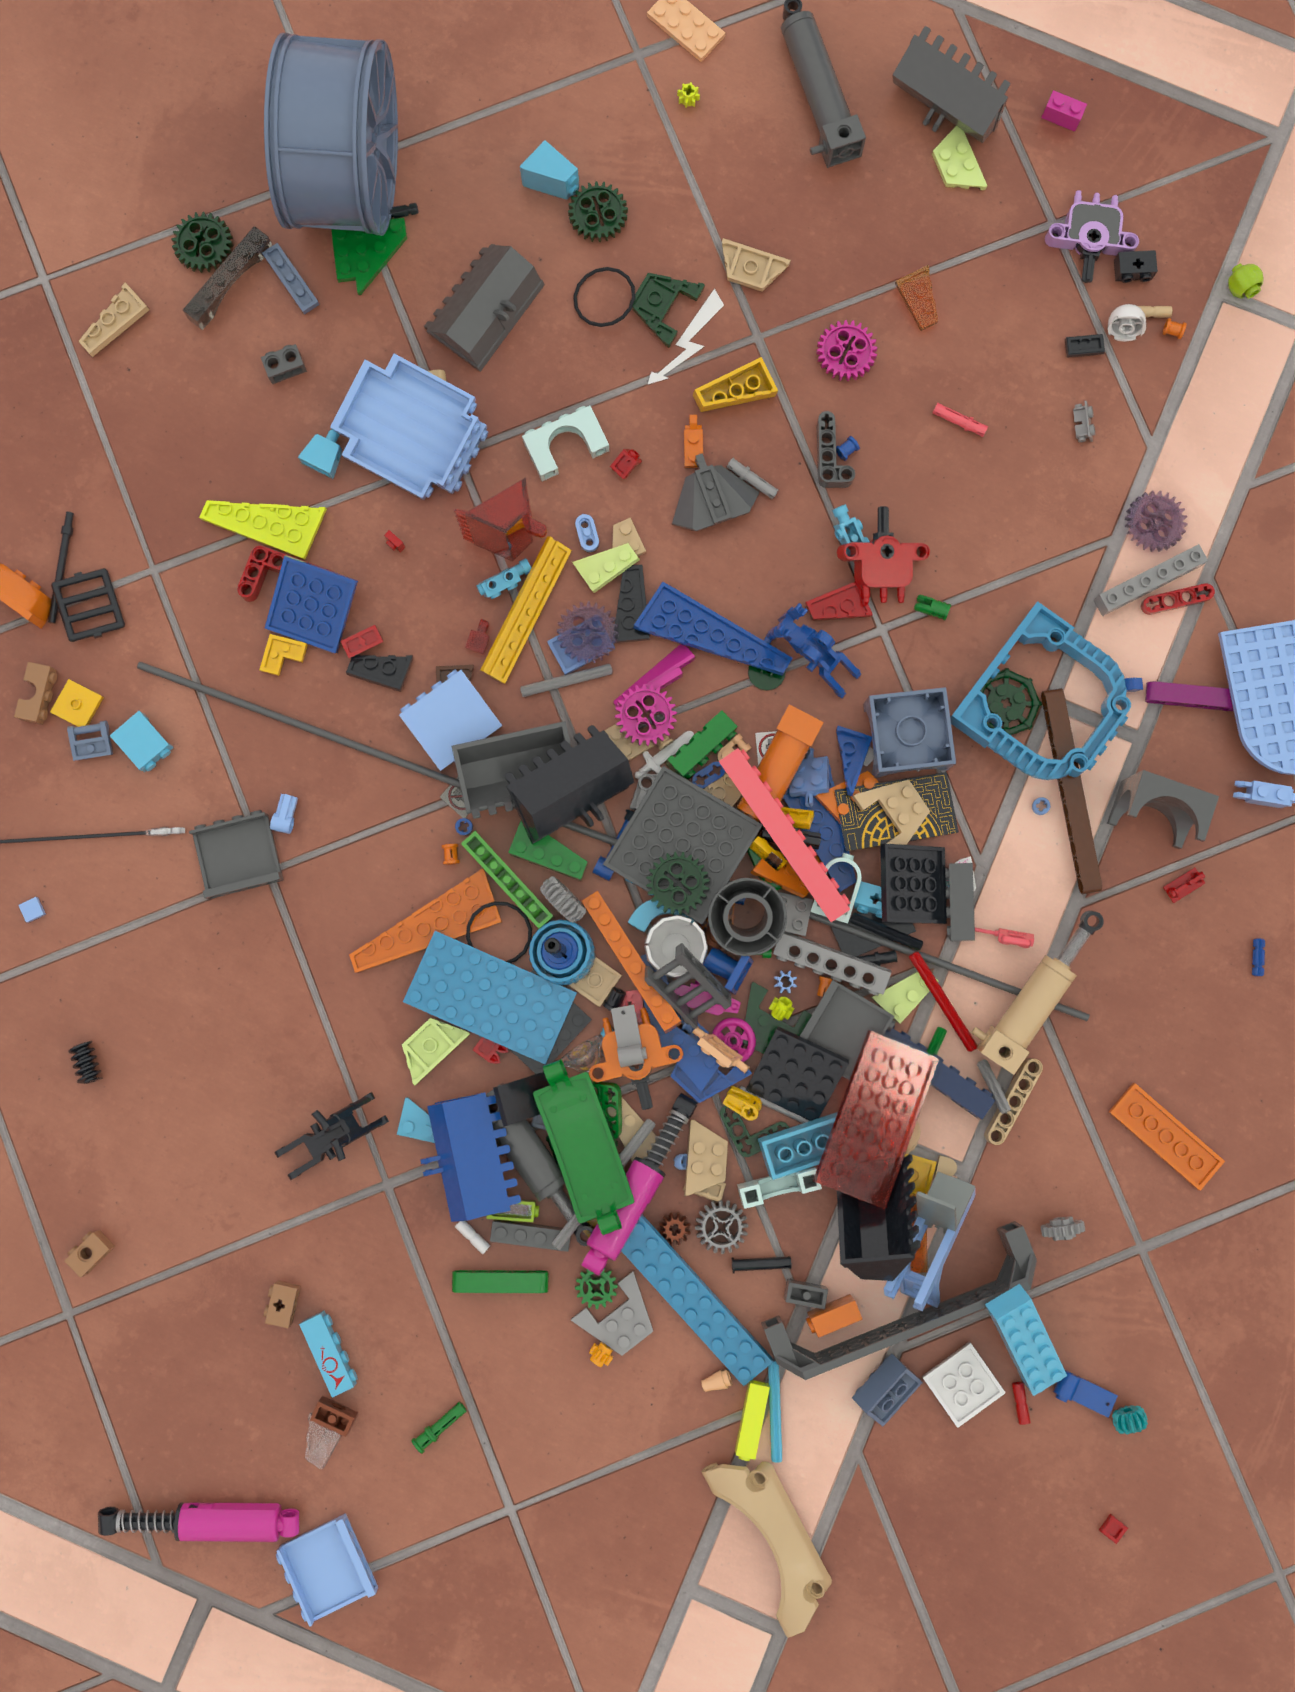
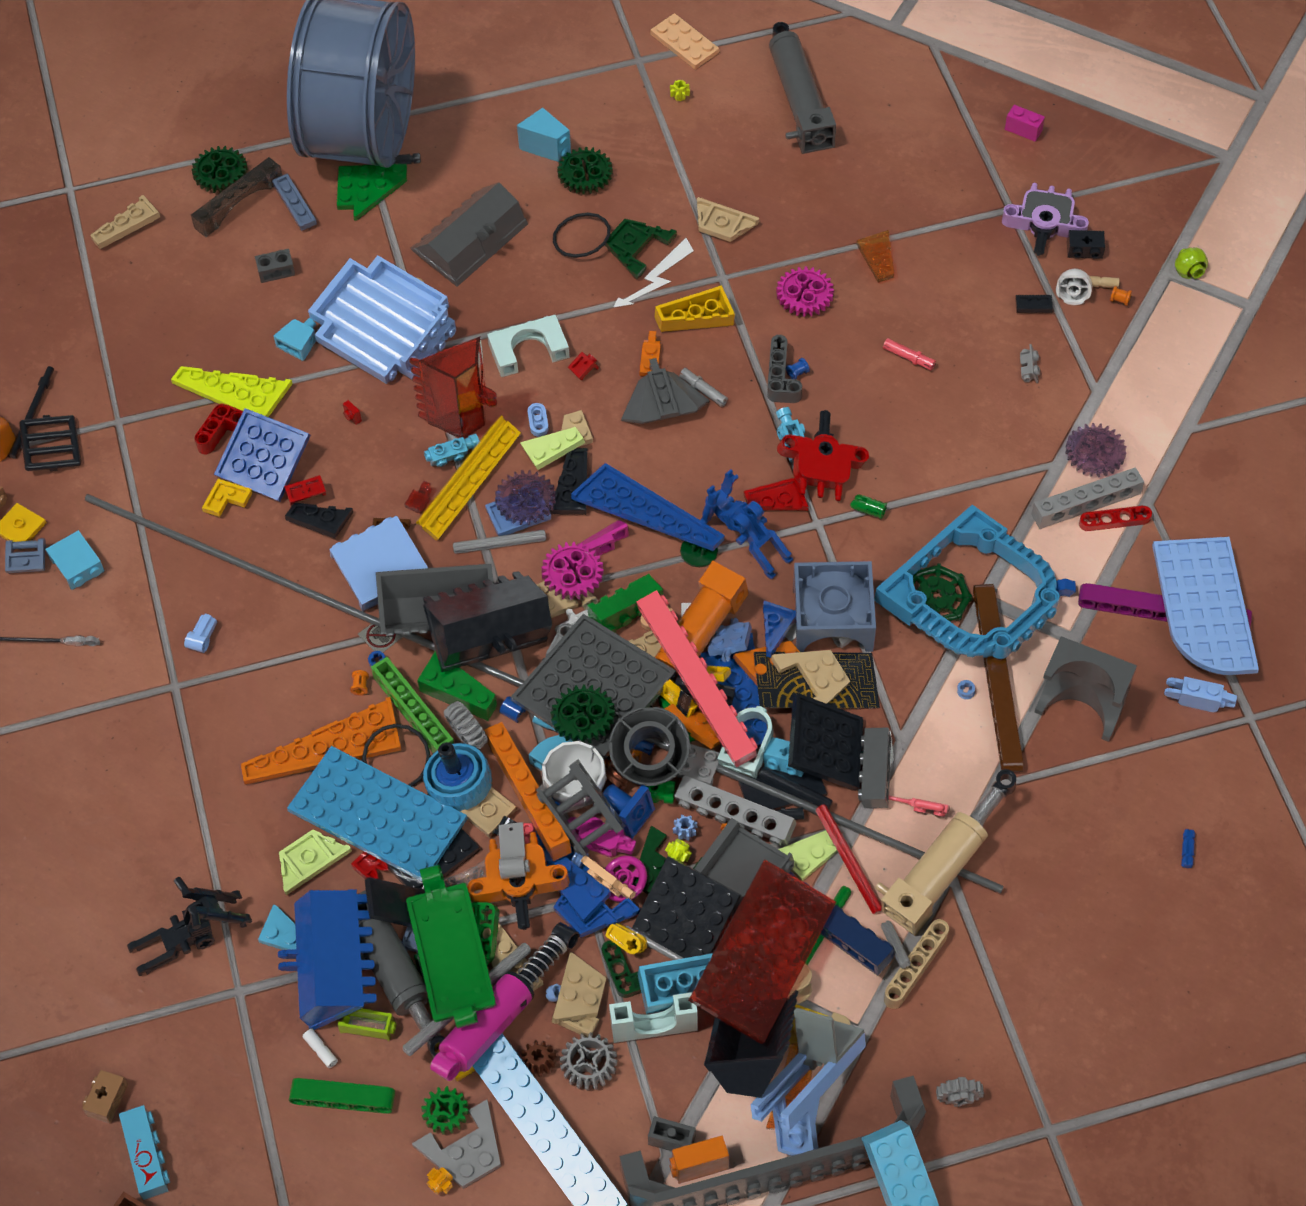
camera: 10 degrees right, 25 degrees down
(237, 854) = (146, 666): dark grey panel -> none
(526, 1234) = (380, 1050): dark grey brick -> none
(705, 771) = (628, 632): blue beam -> none
(761, 1264) = (627, 1105): black pin -> none
(951, 87) = (917, 93): dark grey piece -> none
(957, 162) = (923, 156): yellowish green wing -> none
(1166, 1136) = (1081, 1015): orange plate -> none
(1184, 884) = (1112, 773): red hinge -> none

